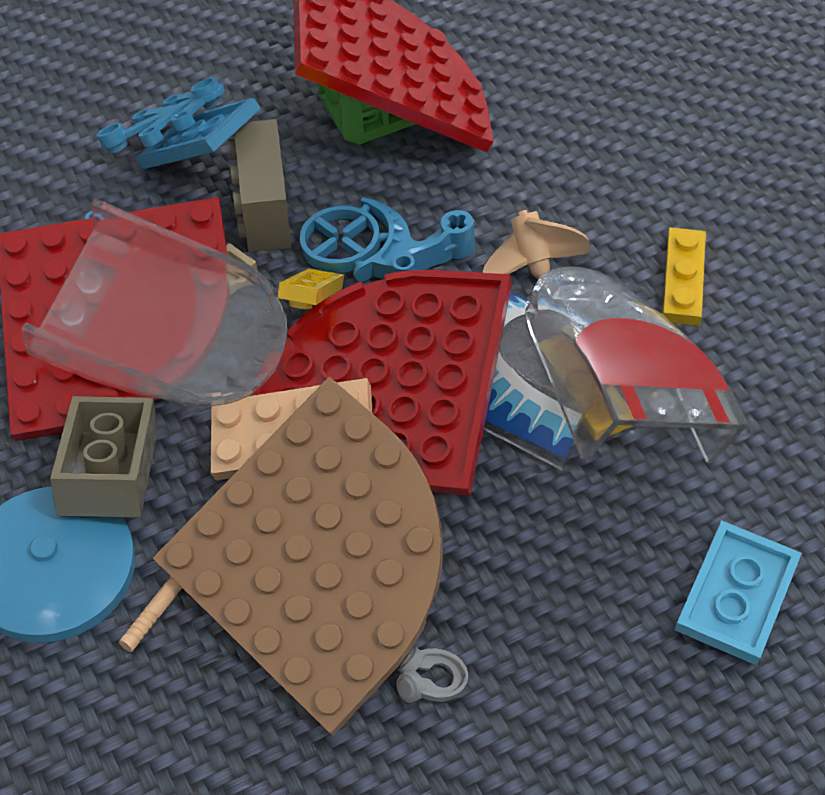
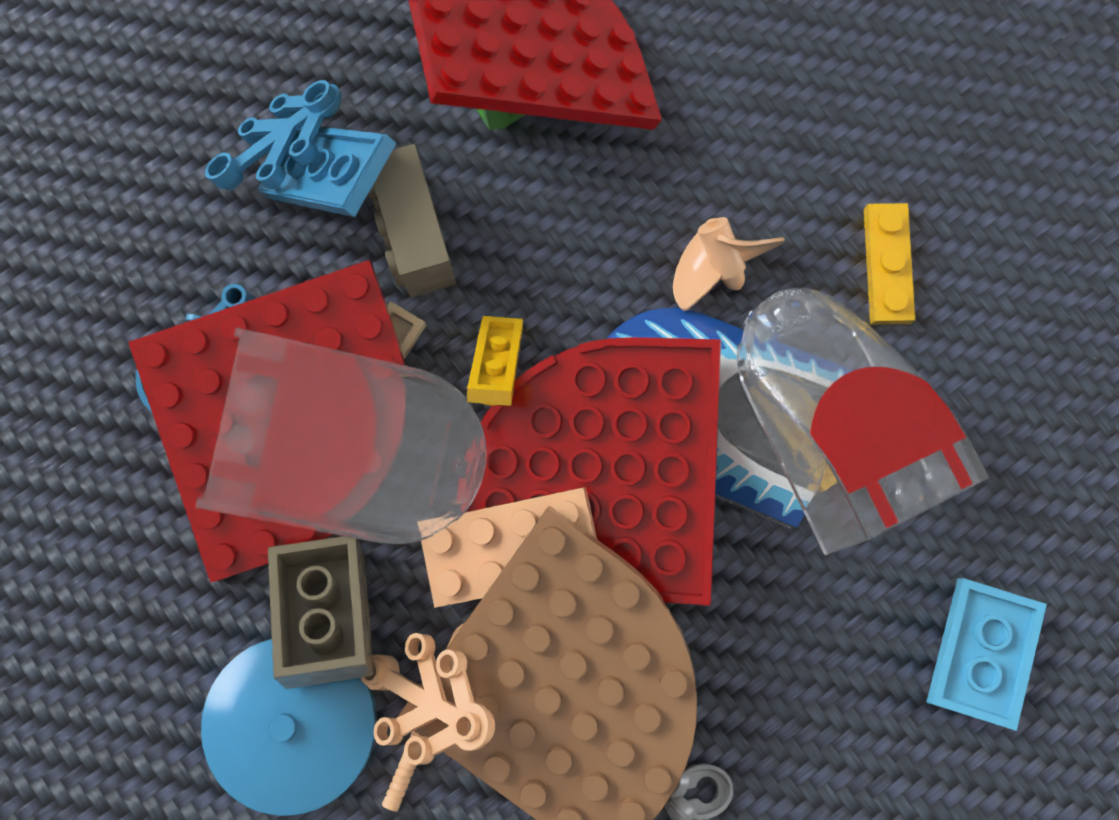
camera: 10 degrees left, 25 degrees up
(218, 544) = (430, 702): none -> light nougat plant
(398, 253) = (582, 284): dark azure piece -> none

